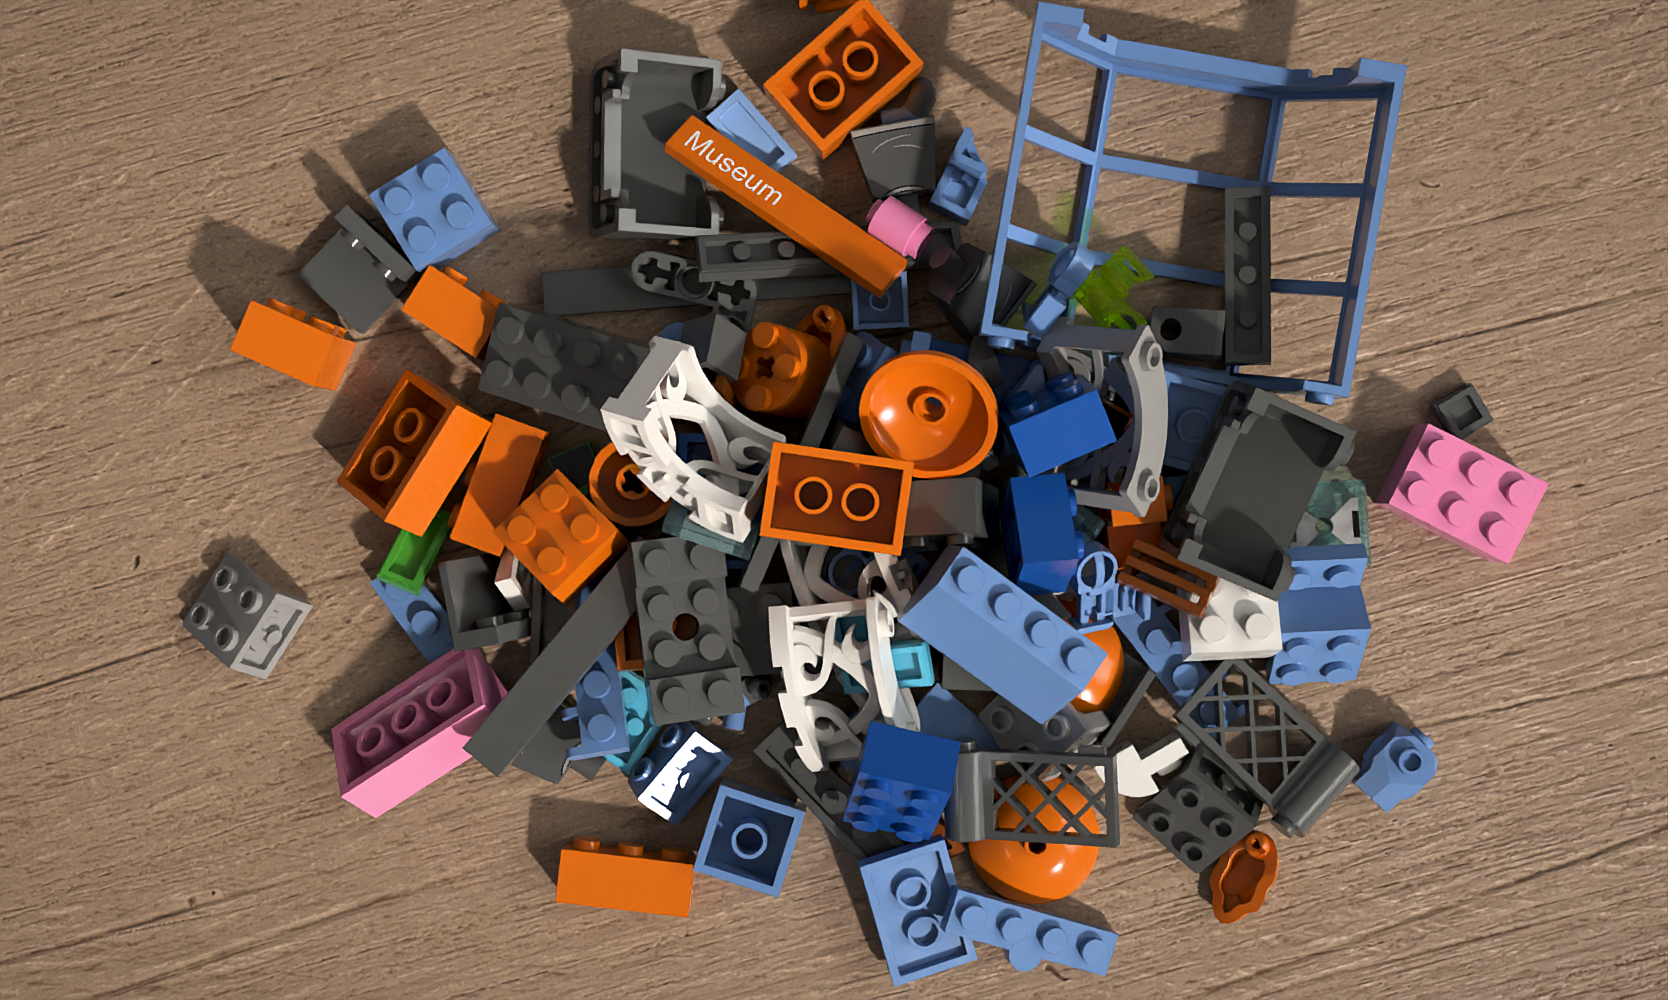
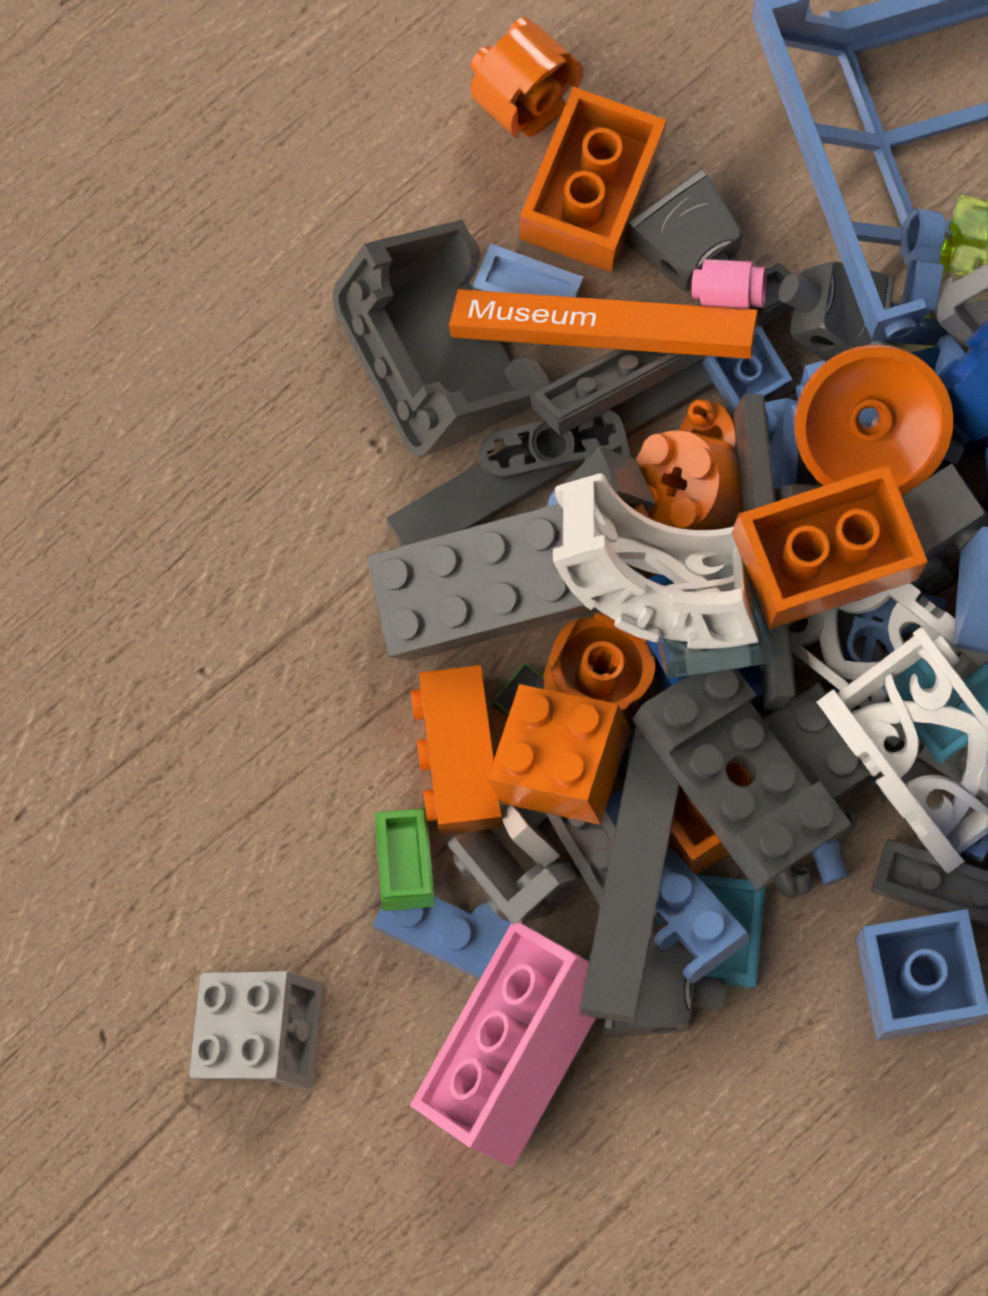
camera: 25 degrees left, 15 degrees down
(287, 343) = (171, 708): orange brick -> none
(359, 271) = (197, 606): dark grey bracket -> none
(413, 453) = (355, 753): orange brick -> none
(434, 211) = (247, 509): medium blue brick -> none
(454, 310) = (320, 598): orange brick -> none
(626, 877) = (814, 1092): orange brick -> none
(678, 771) = (806, 951): medium blue bracket -> none
(917, 105) = (676, 169): dark grey arm -> none
(961, 181) = (761, 223): medium blue slope -> none

